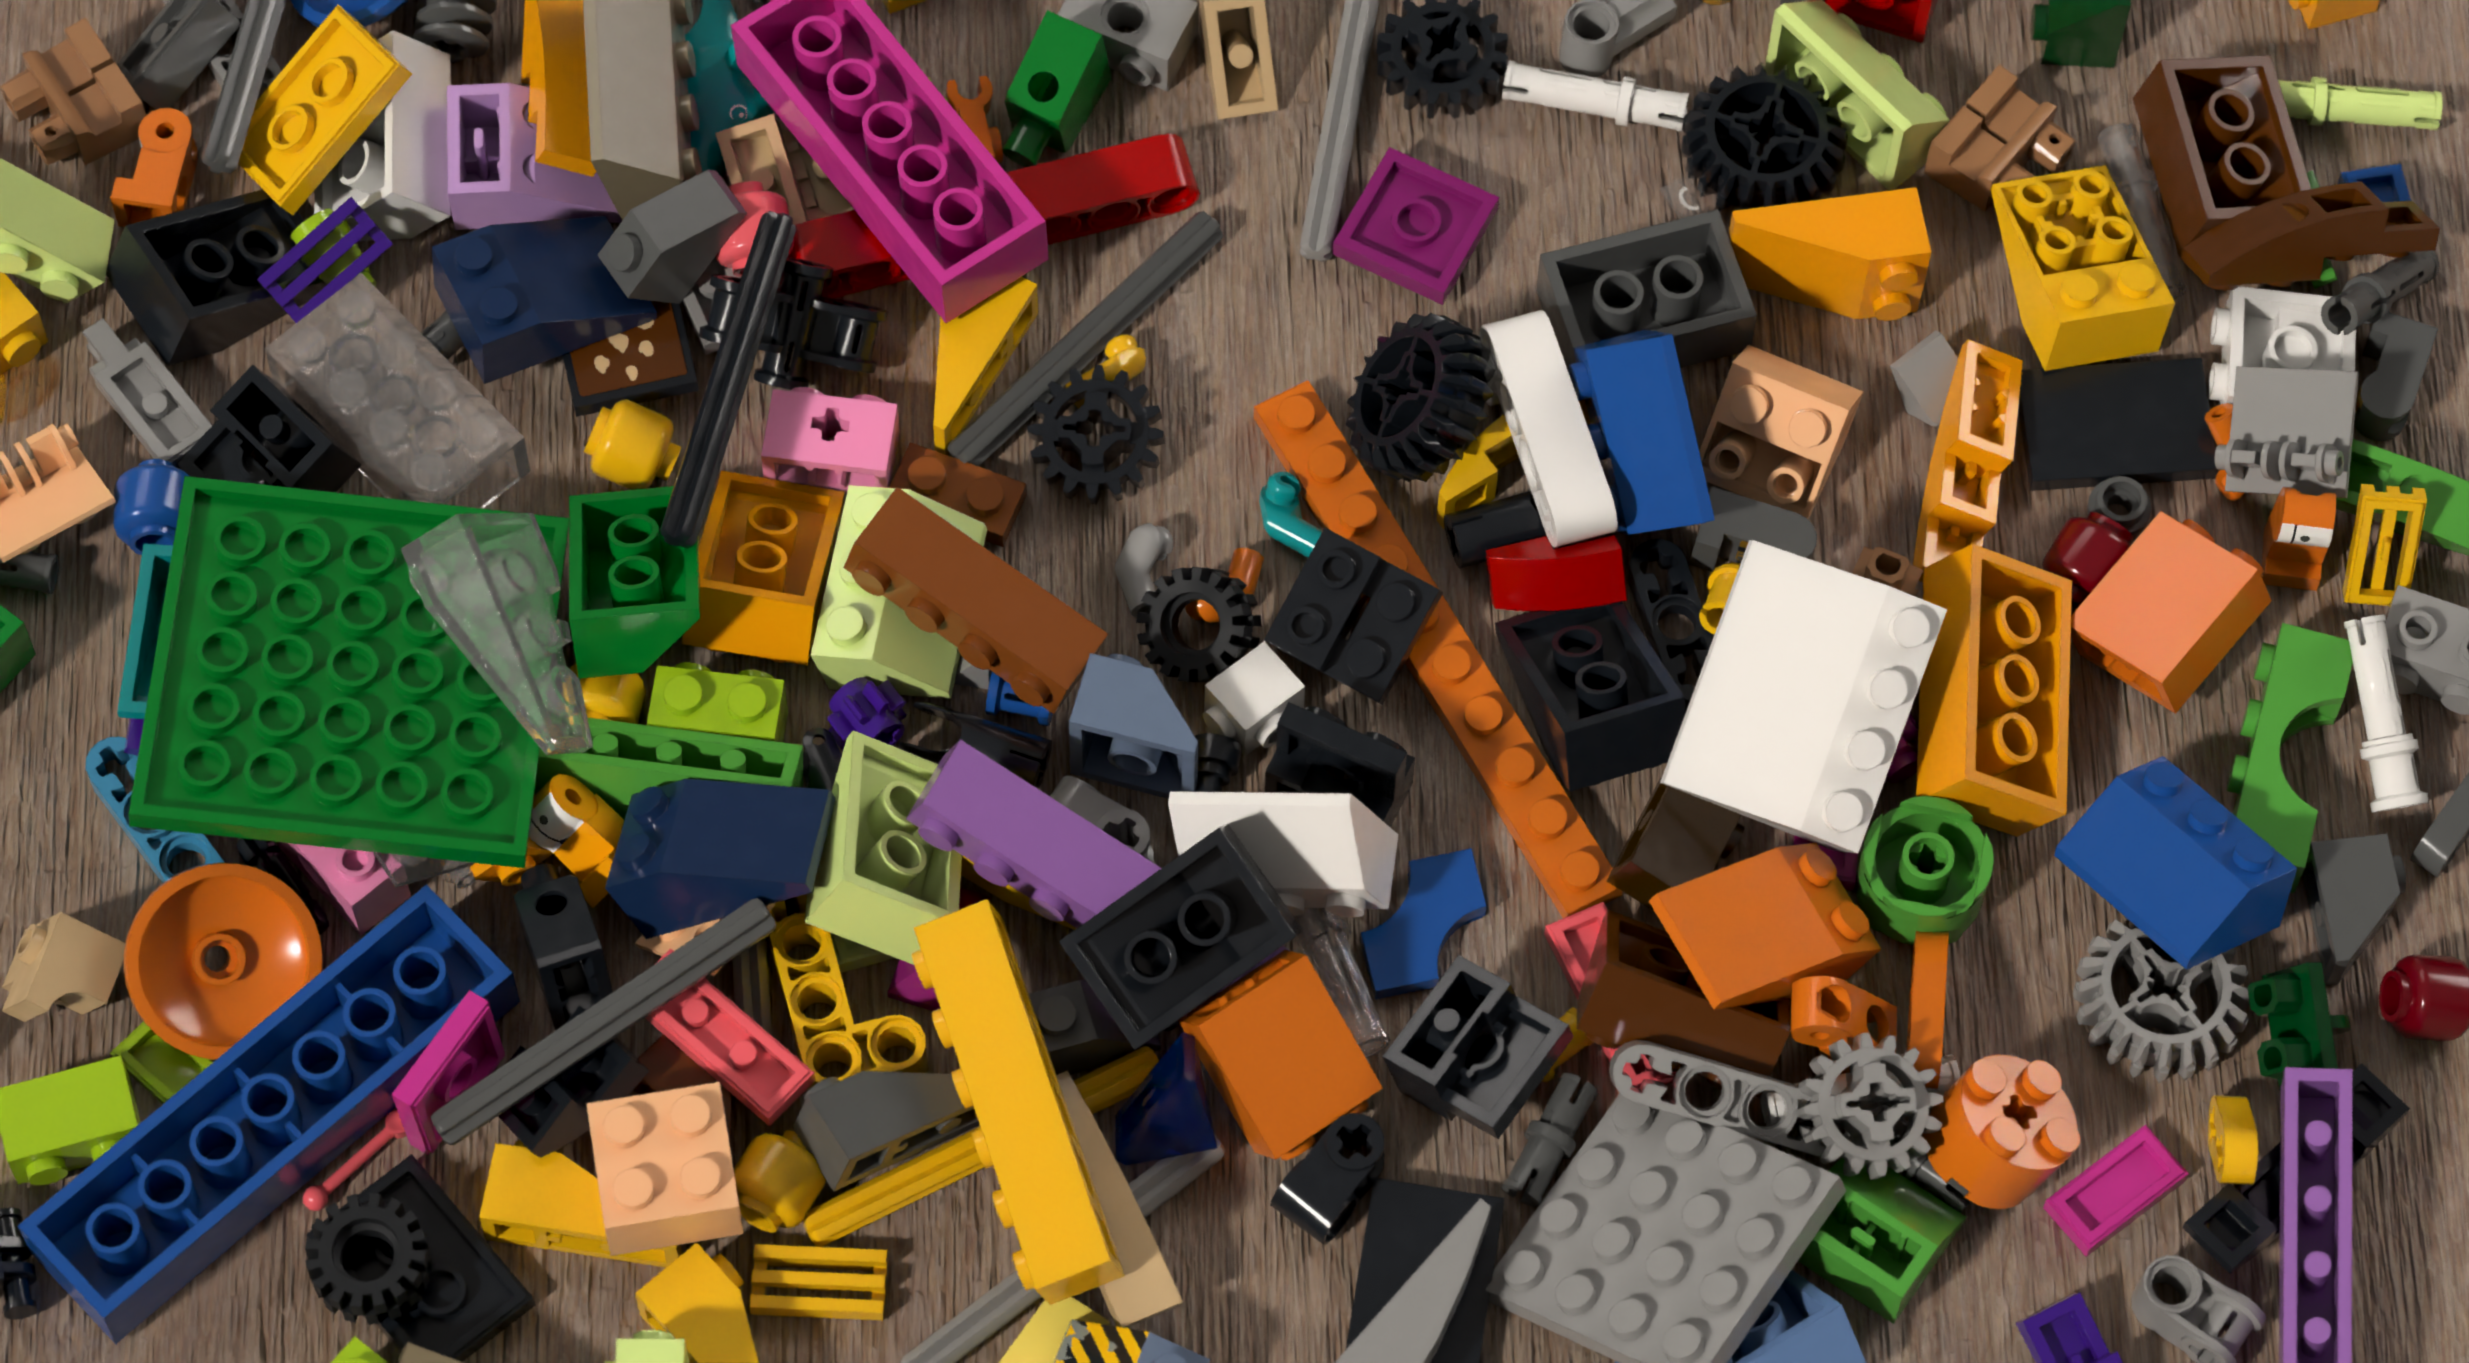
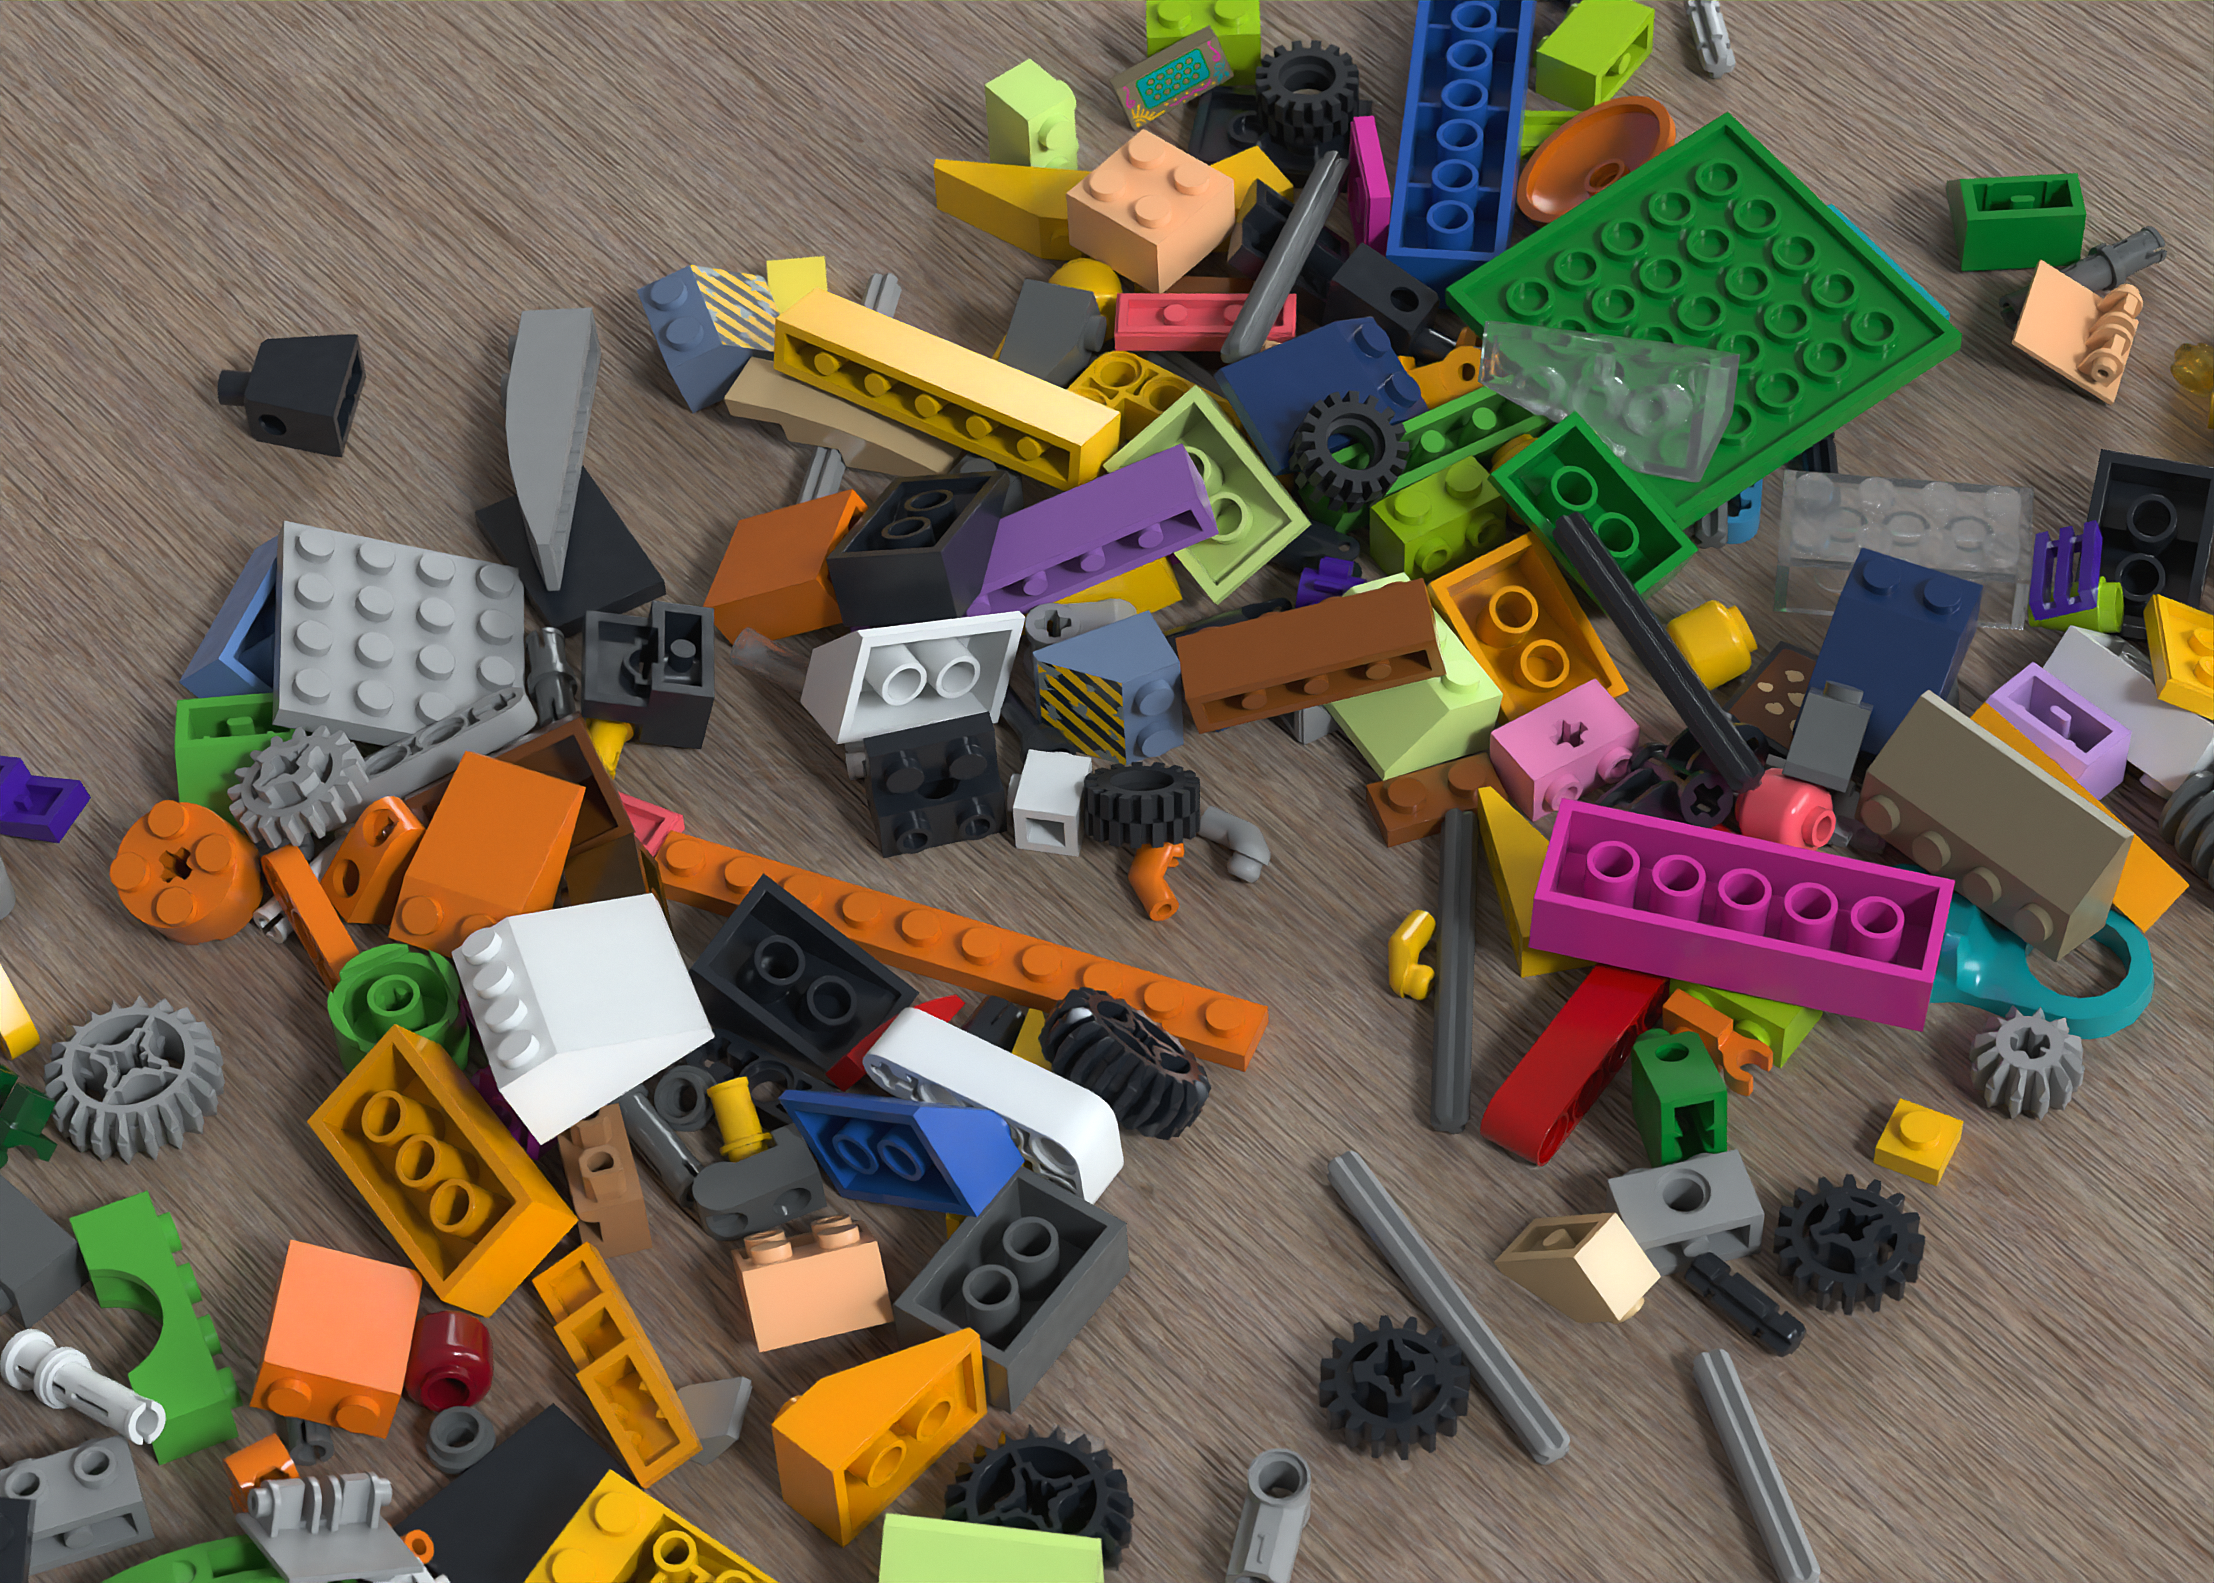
camera: 145 degrees right, 15 degrees down
(62, 965) = (1698, 94): tan brick -> none
(145, 394) = (2074, 442): light grey hinge -> none
(148, 504) = (1989, 380): blue head -> none
(269, 419) = (1933, 442): black brick -> none
(317, 1196) = (1391, 130): coral hinge -> none
(768, 777) = (1366, 426): none -> black tyre
(818, 1257) = (996, 287): yellow tile -> none
(1071, 434) = (1365, 887): black gear -> none
(1167, 1110) = (840, 476): clear blue slope -> none
(1283, 514) = (1161, 951): teal arm -> none
(1327, 1186) = (691, 552): black piece -> none
(1328, 601) = (1051, 876): black brick -> none
(1415, 225) = (1276, 1236): magenta plate -> none
(1439, 901) = (783, 783): blue tile -> none
(1596, 96) = (1154, 1486): white pin -> none
(2115, 1190) = (76, 943): dark pink tile -> none
(2178, 864) = (179, 1136): blue slope -> none
(2390, 503) = (179, 1527): yellow tile -> none

